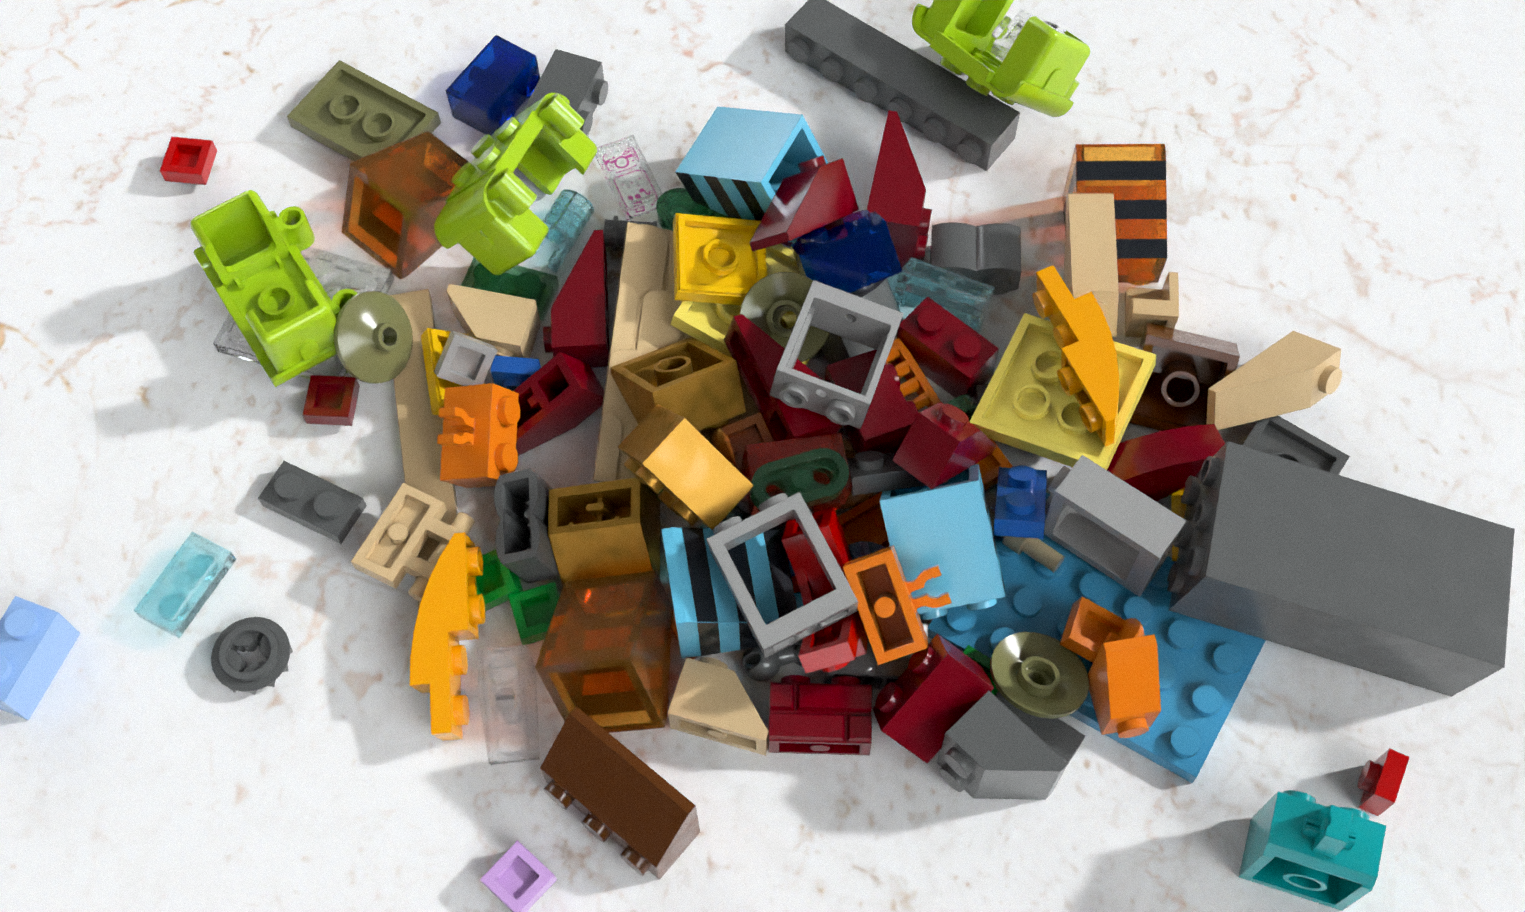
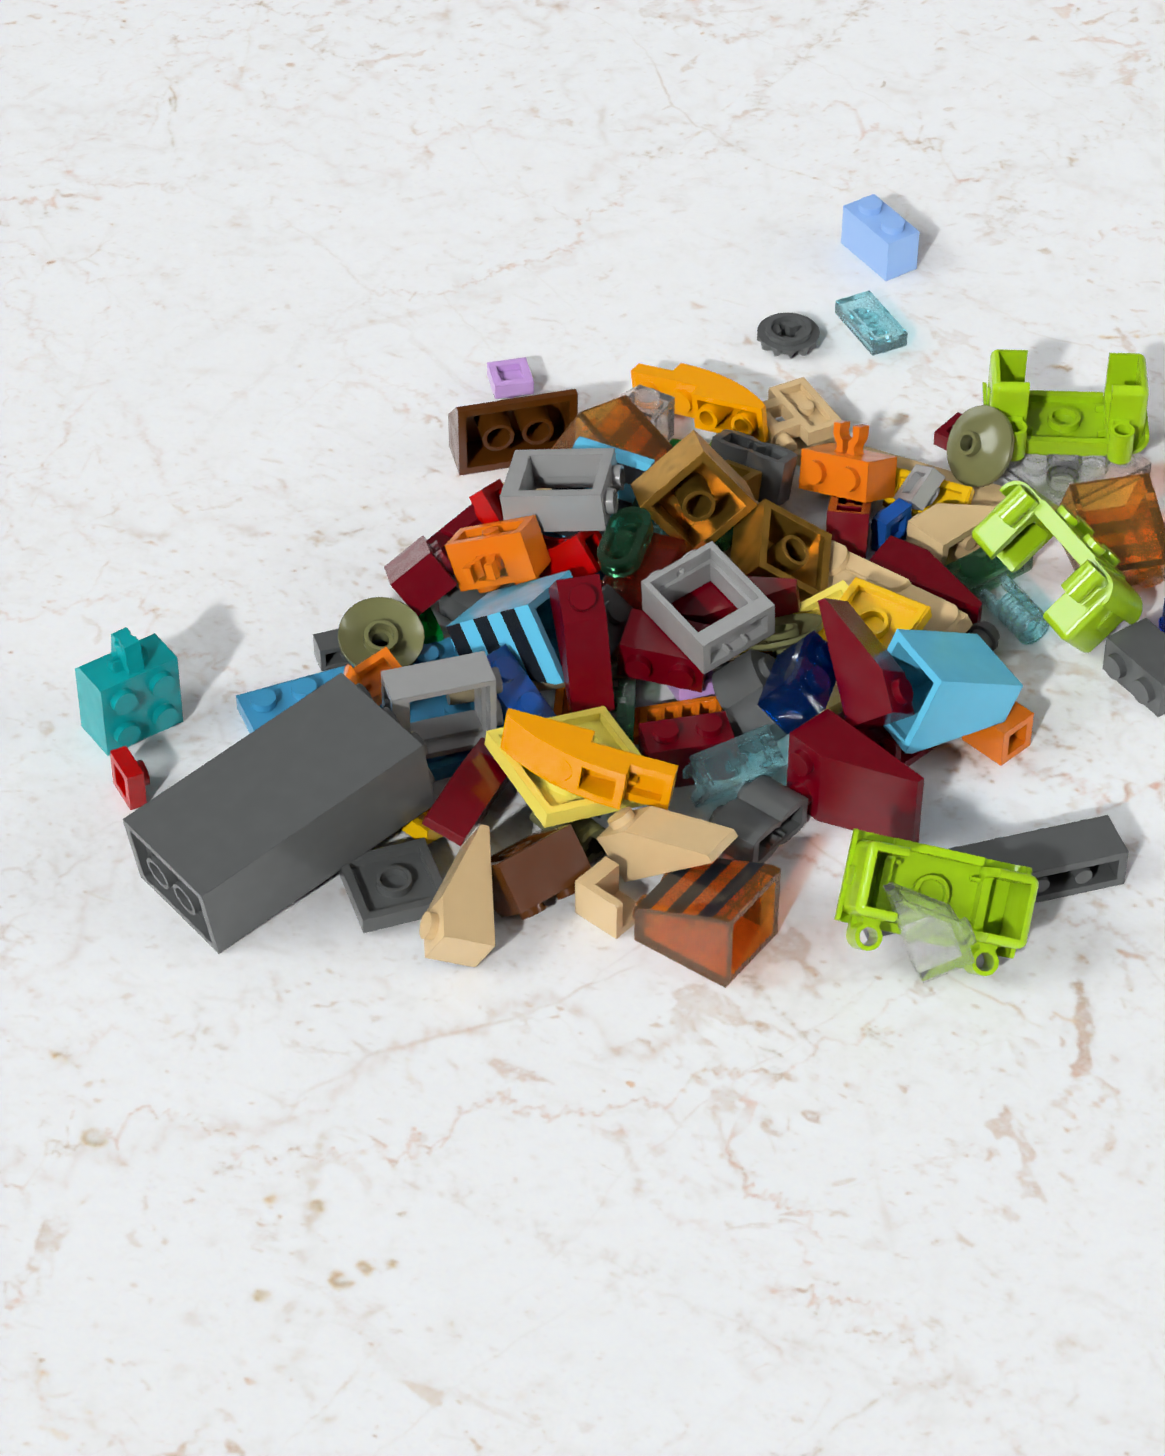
camera: 125 degrees right, 20 degrees down
(312, 502) = (886, 403): dark grey plate -> none
(629, 177) = (1047, 679): clear tile -> none
(998, 755) = (342, 577): dark grey slope -> none
(1126, 686) = (323, 651): orange slope -> none

